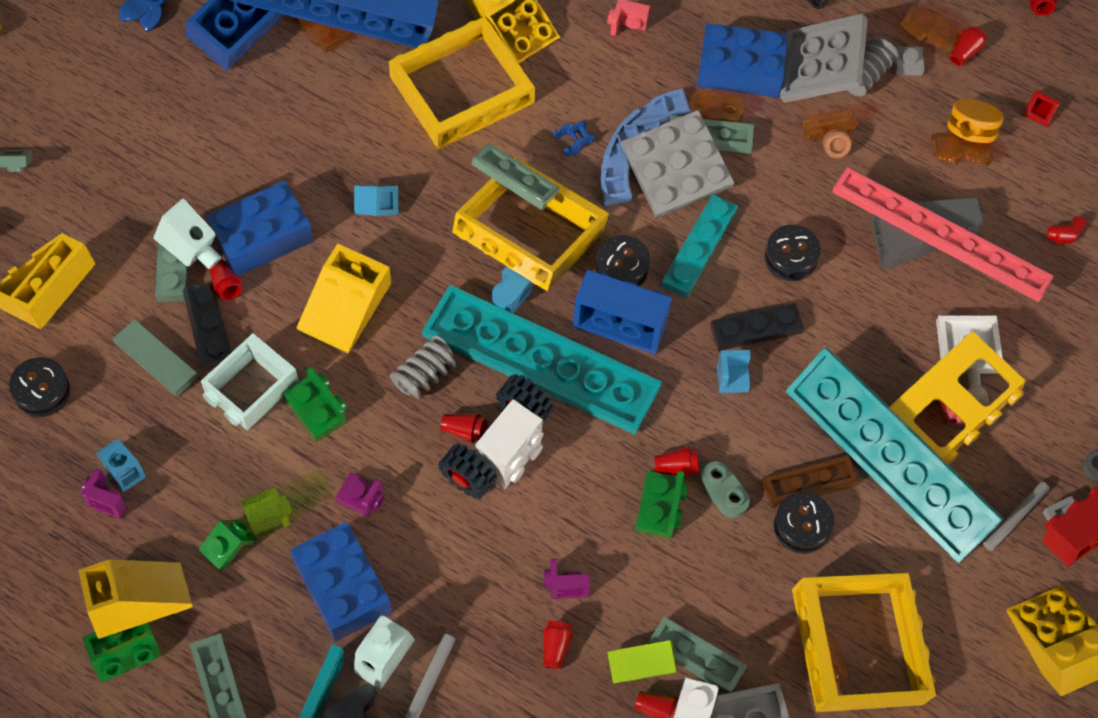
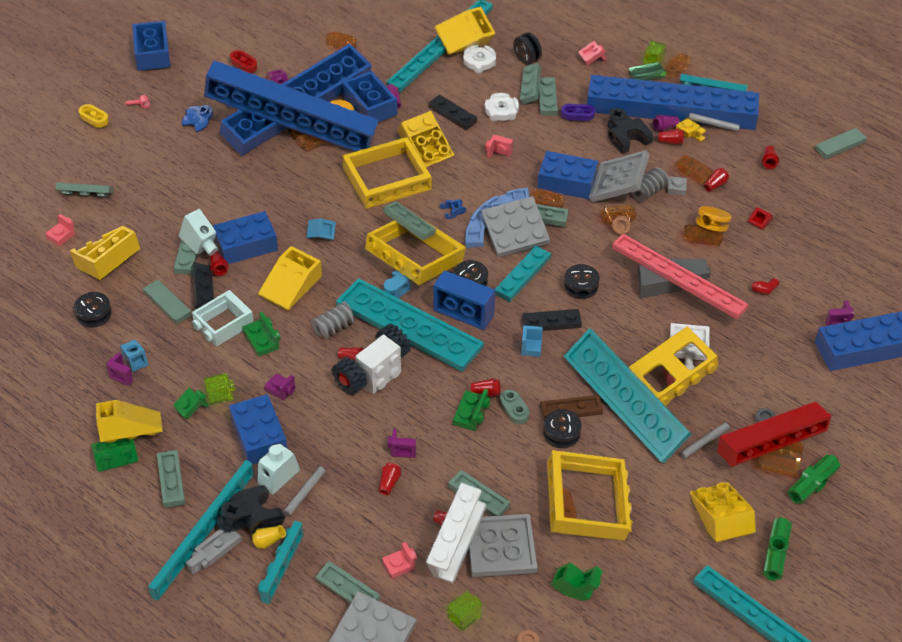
camera: 10 degrees right, 15 degrees down
(642, 661) = (439, 492): lime tile -> none

